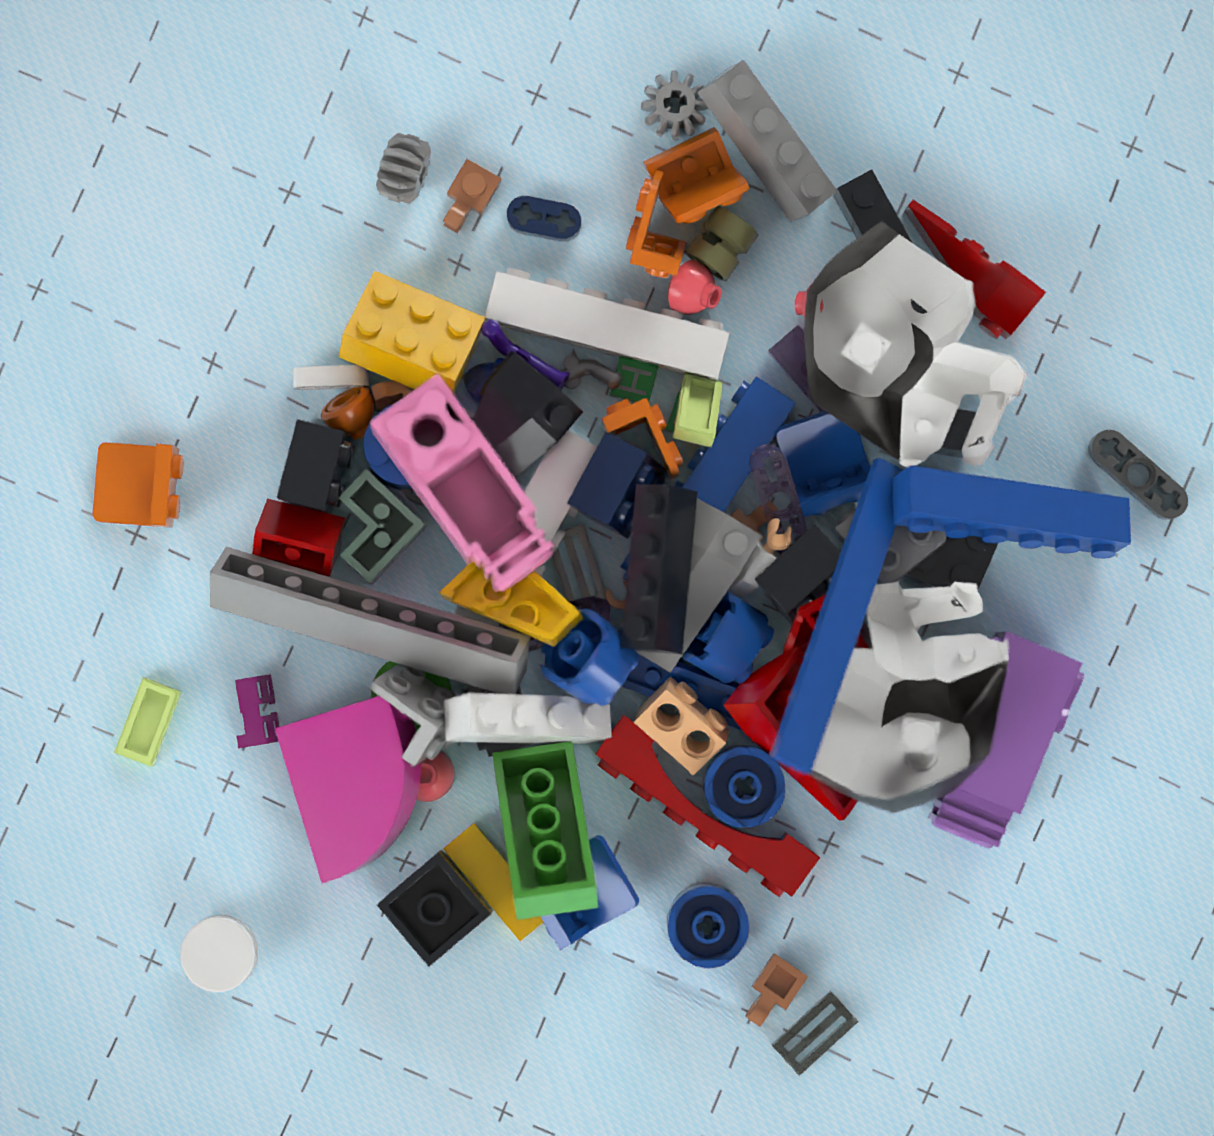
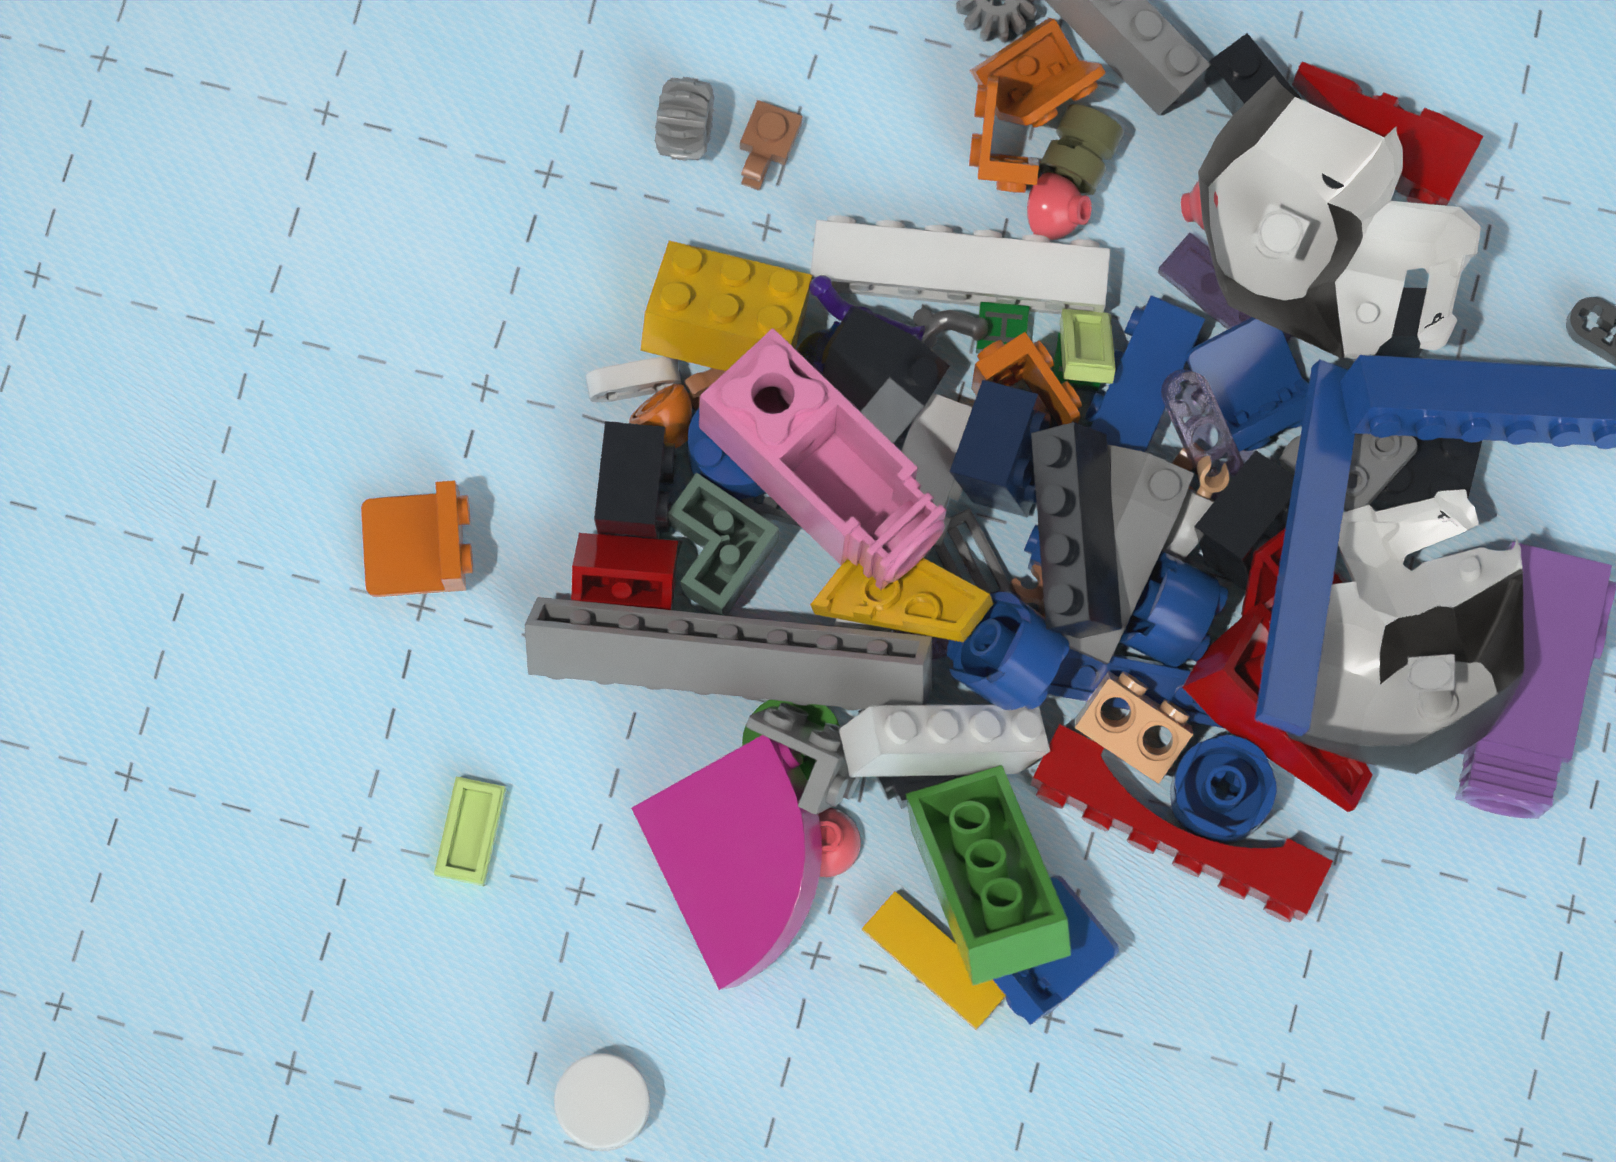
camera: 10 degrees left, 10 degrees down
(249, 708) = (594, 791): magenta piece -> none
(435, 908) = (864, 998): black brick -> none
(546, 209) = (863, 145): dark blue beam -> none
(724, 941) = (1224, 944): blue brick -> none
(778, 985) = (1306, 1033): nougat plate -> none
(828, 1042) = (1391, 1053): clear smoke tile -> none

